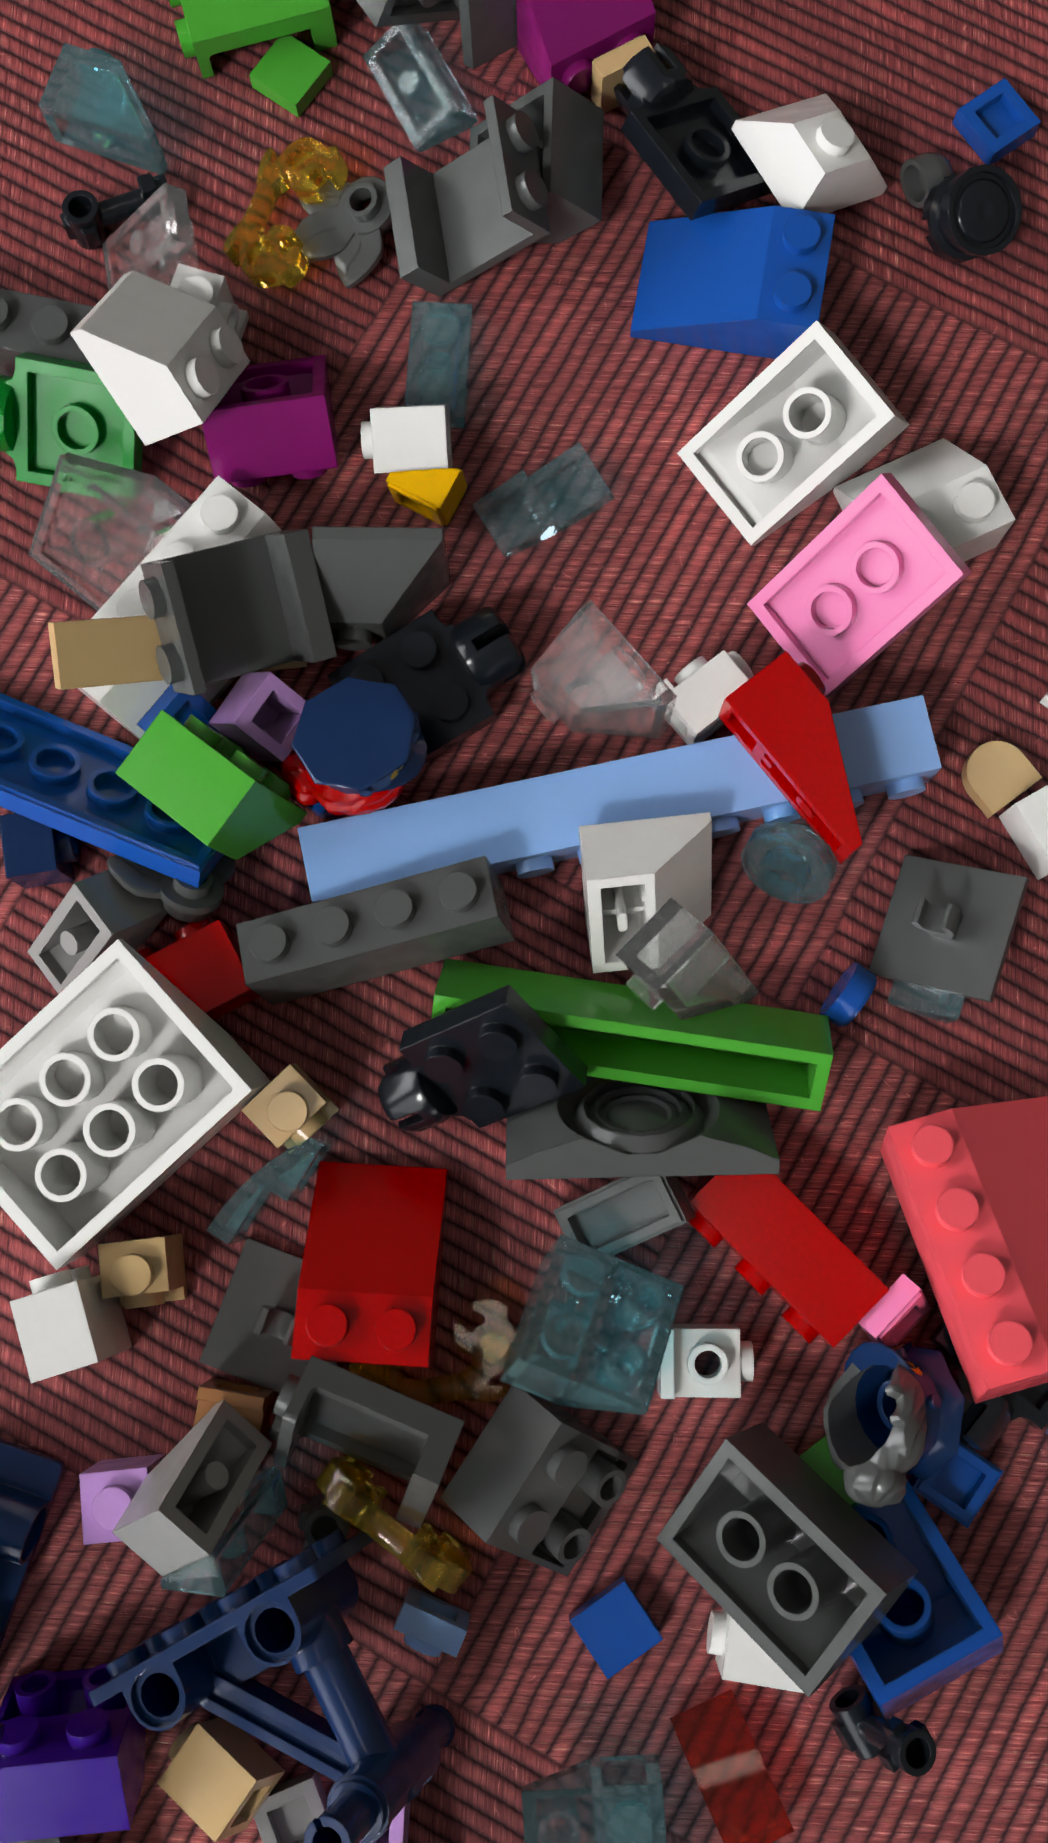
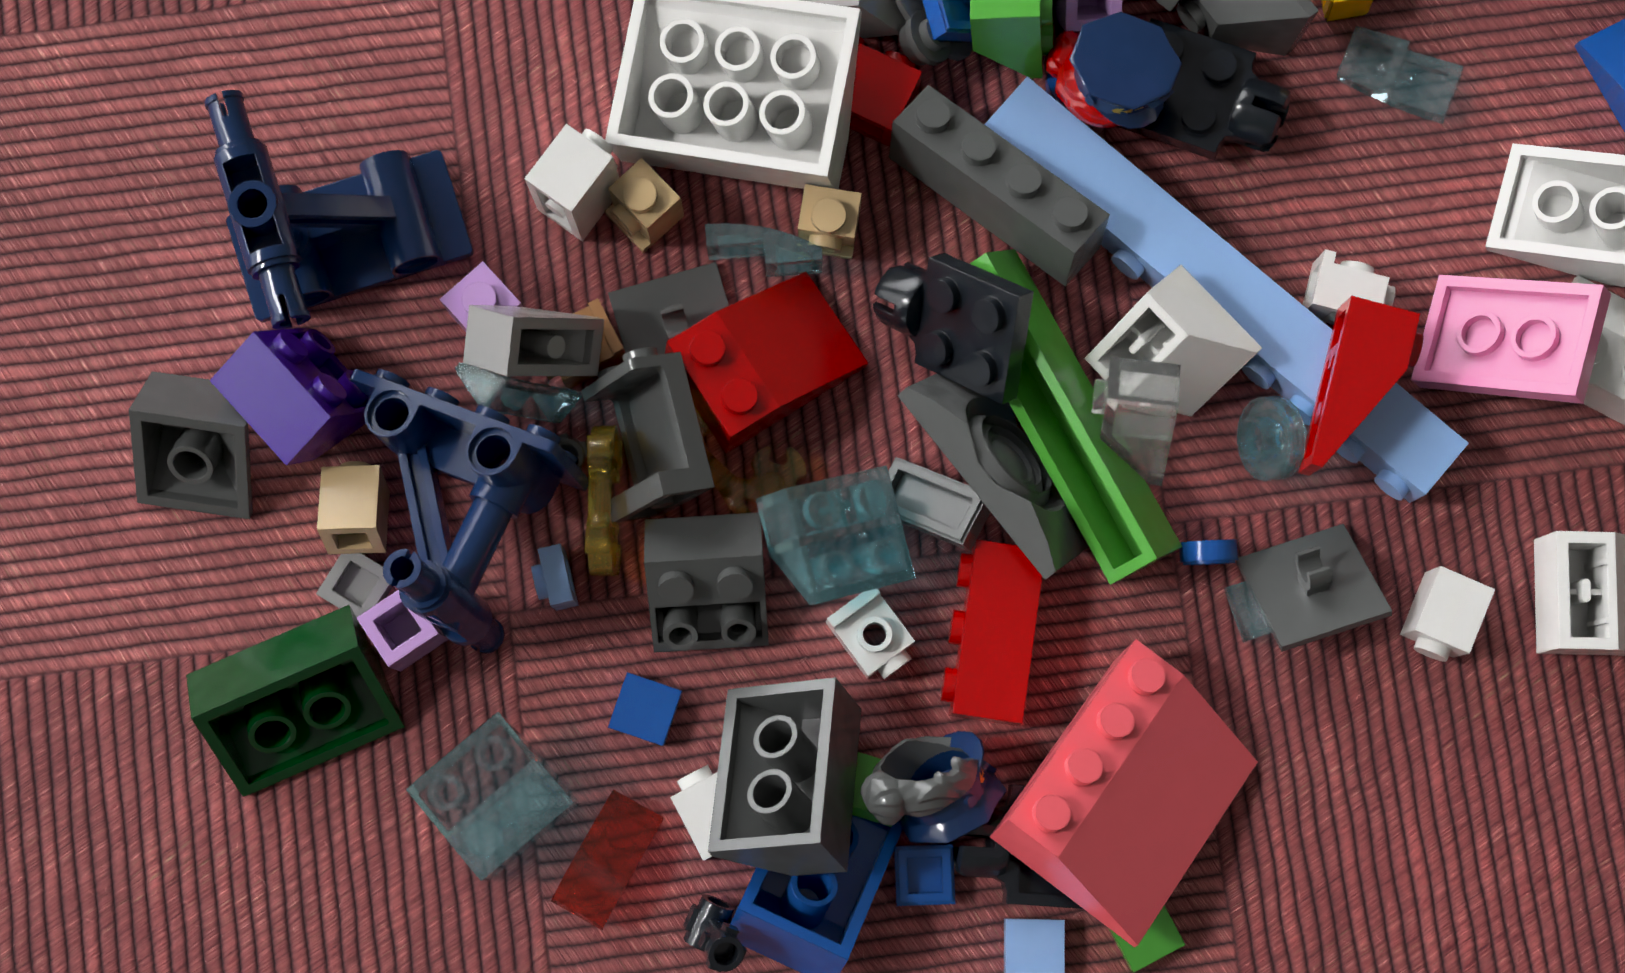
camera: 45 degrees right, 0 degrees up
(600, 681) = (1295, 208): clear slope -> none
(895, 1313) = (1010, 745): bright pink tile -> none
(997, 775) = (1454, 544): tan tile -> none

